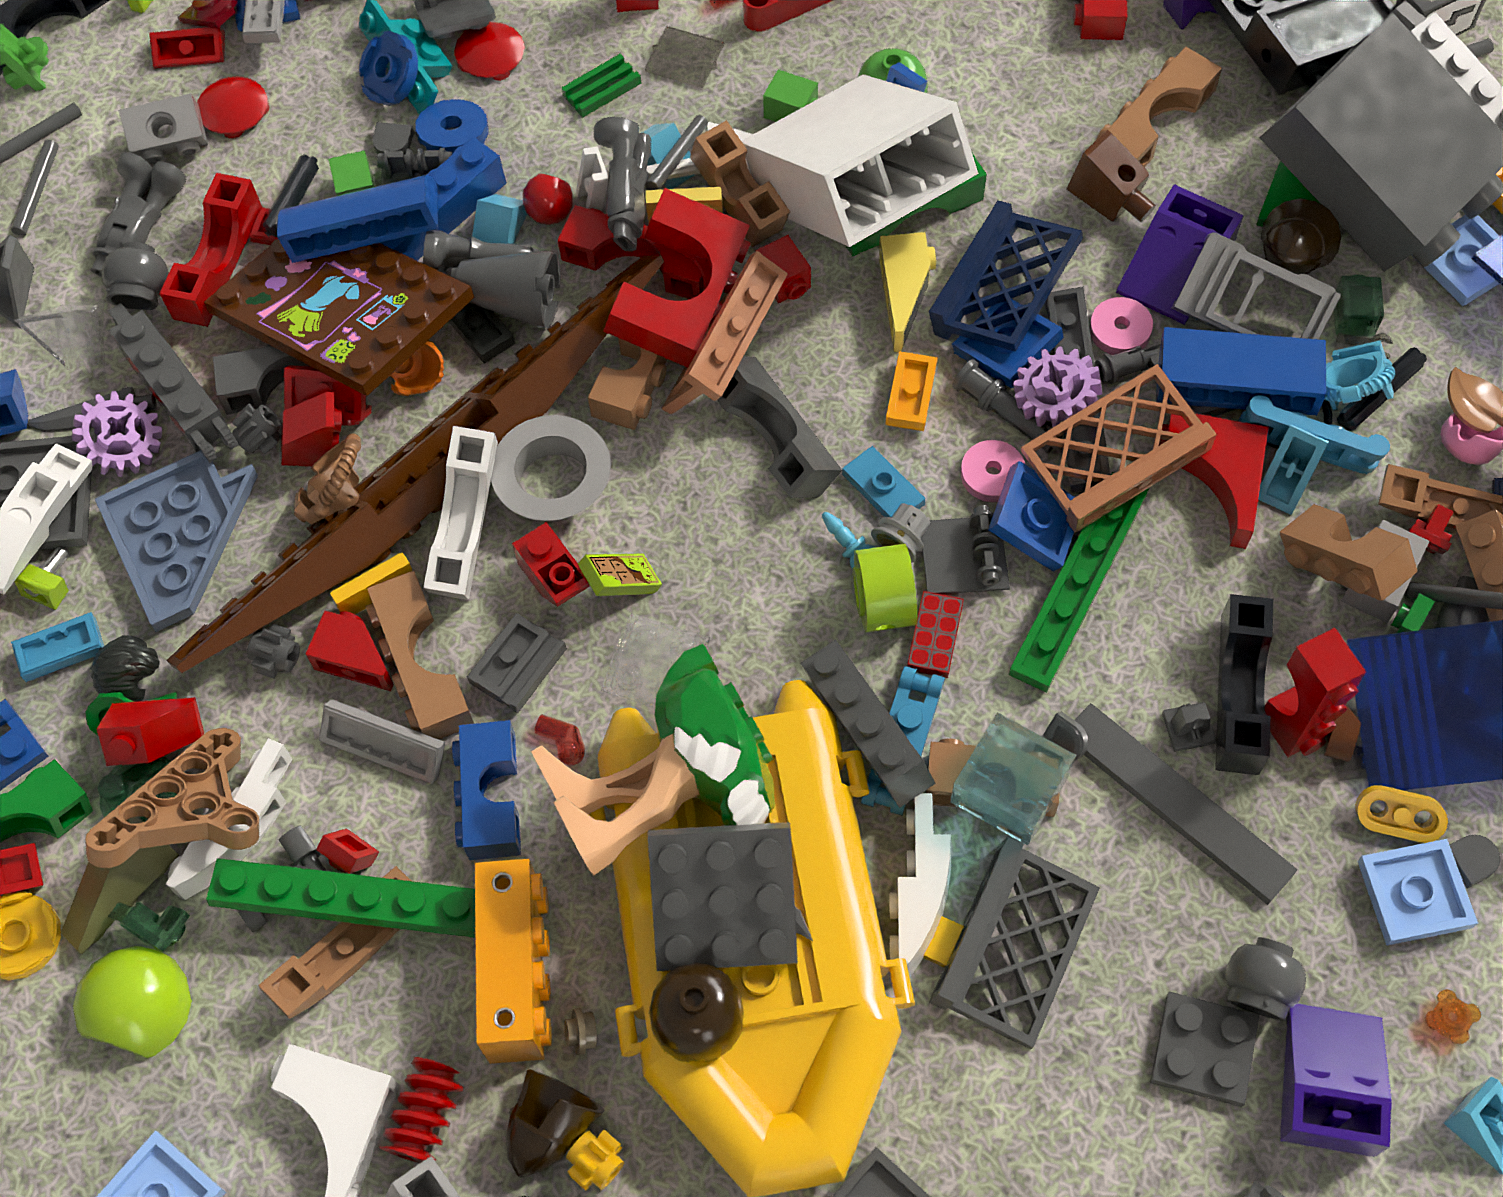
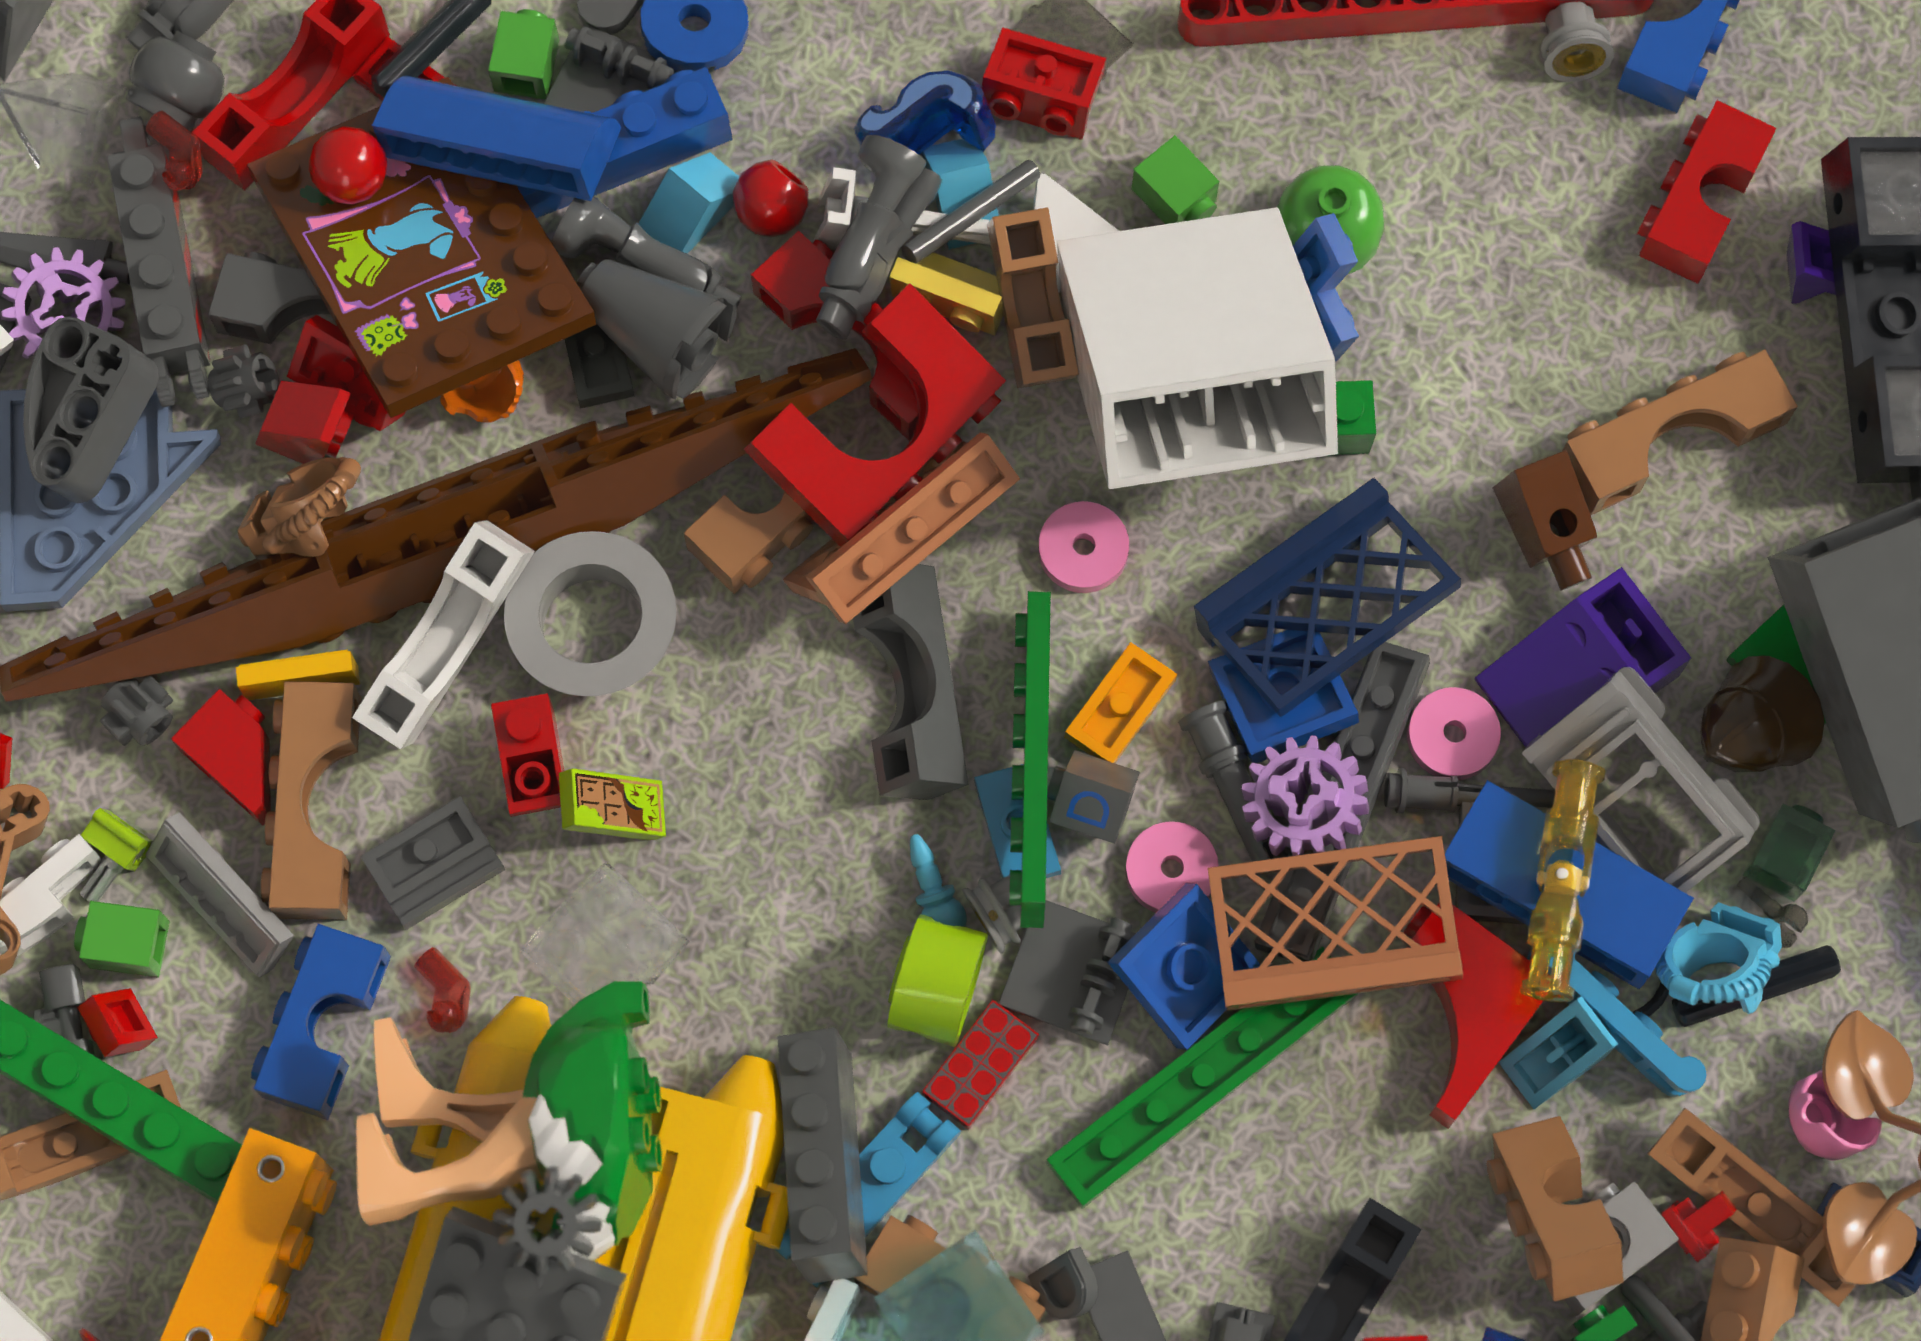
camera: 20 degrees right, 10 degrees up
(156, 475) = (82, 406): none -> dark grey beam
(157, 304) = (184, 151): none -> clear red arm
(271, 269) = (348, 165): none -> red piece
(301, 741) = (122, 847): none -> lime piece
(327, 796) = (122, 938): none -> bright green brick
(597, 81) = (927, 21): green tile -> none
(633, 102) = (930, 110): none -> clear blue animal
(682, 79) = (1042, 83): none -> red bracket
(733, 812) = (554, 1241): none -> dark grey gear
(789, 258) = (1038, 448): red brick -> none
(839, 330) = (1078, 571): none -> bright pink piece
(882, 441) = (1030, 780): none -> green plate
(905, 277) = (1193, 539): light yellow slope -> none
(923, 444) = (1092, 795): none -> dark grey brick
(1255, 378) = (1556, 920): none -> clear yellow piece

